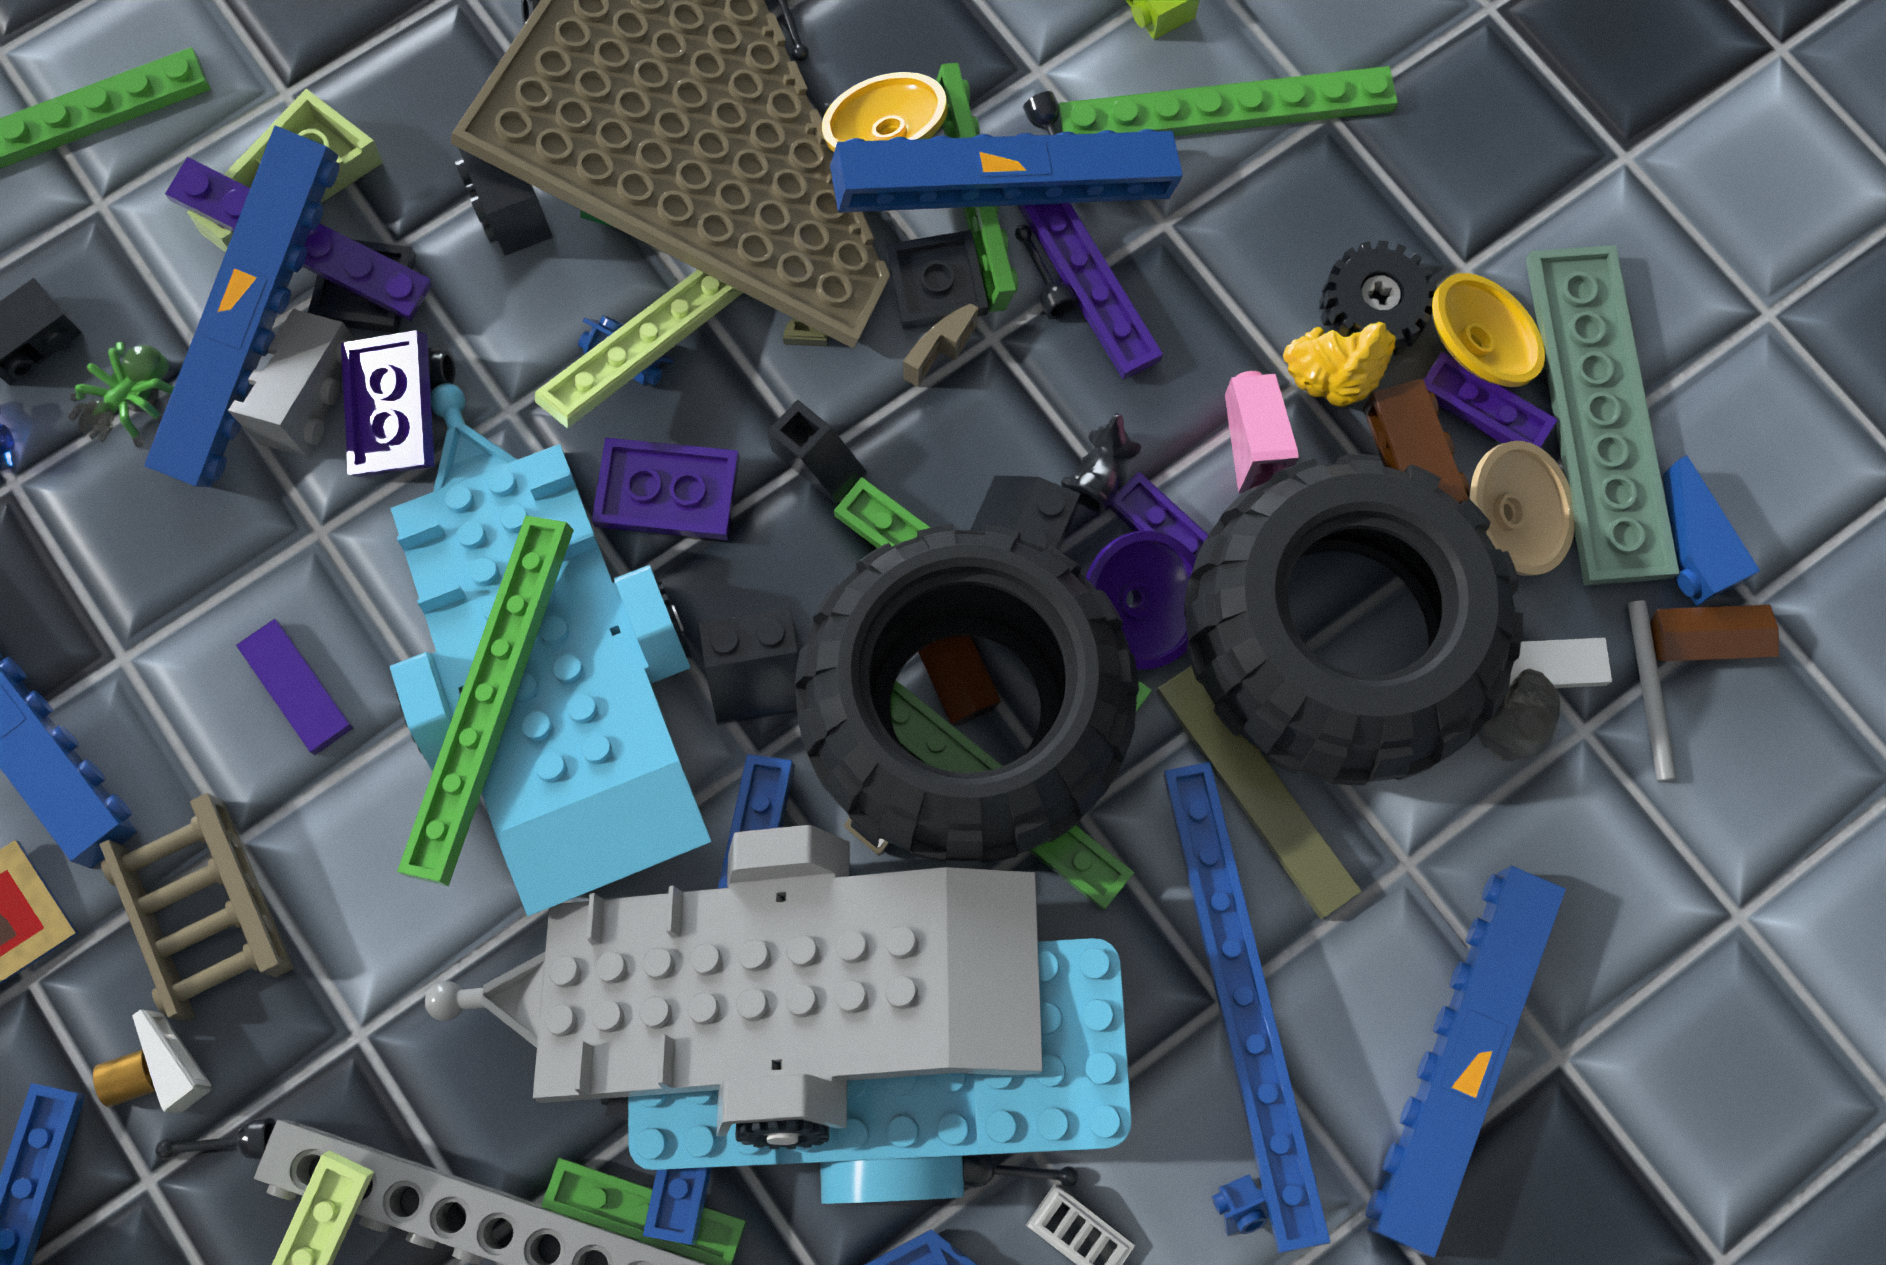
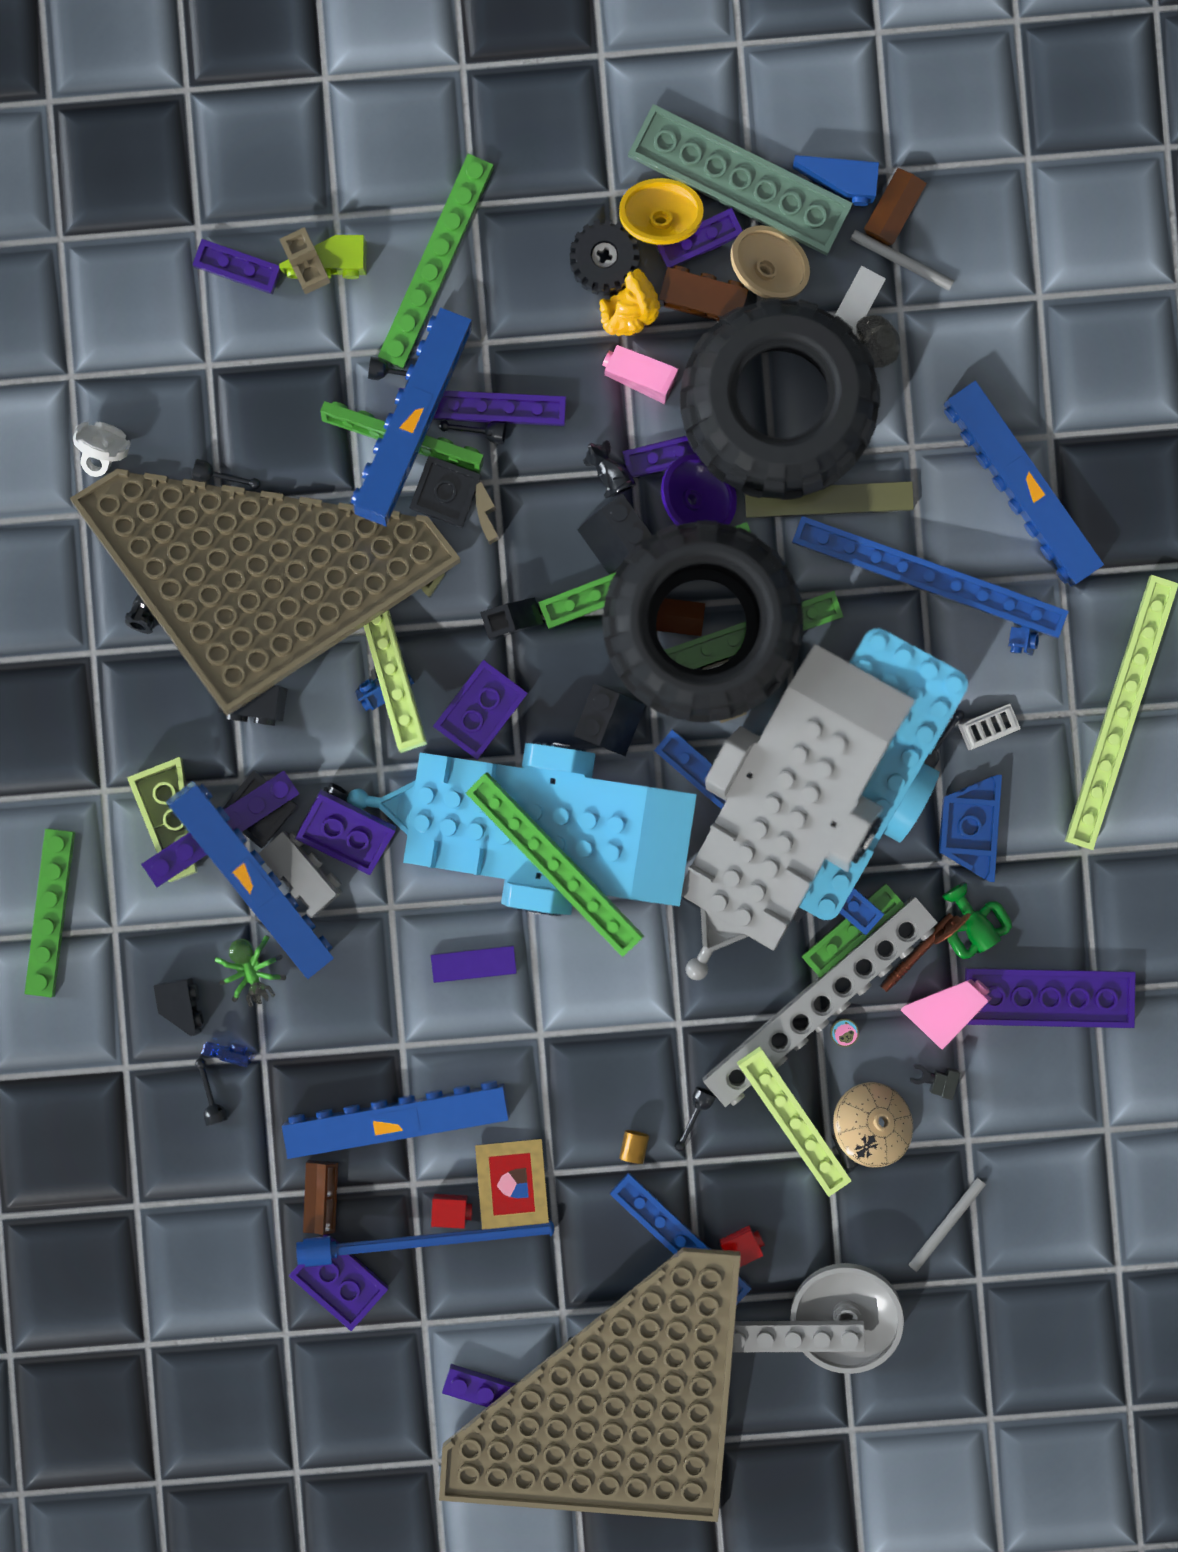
camera: 55 degrees left, 15 degrees up
(171, 1066) = (644, 1122): white slope -> none
(244, 909) = (554, 1045): dark tan fence -> none
(887, 108) = (322, 459): yellow dish -> none

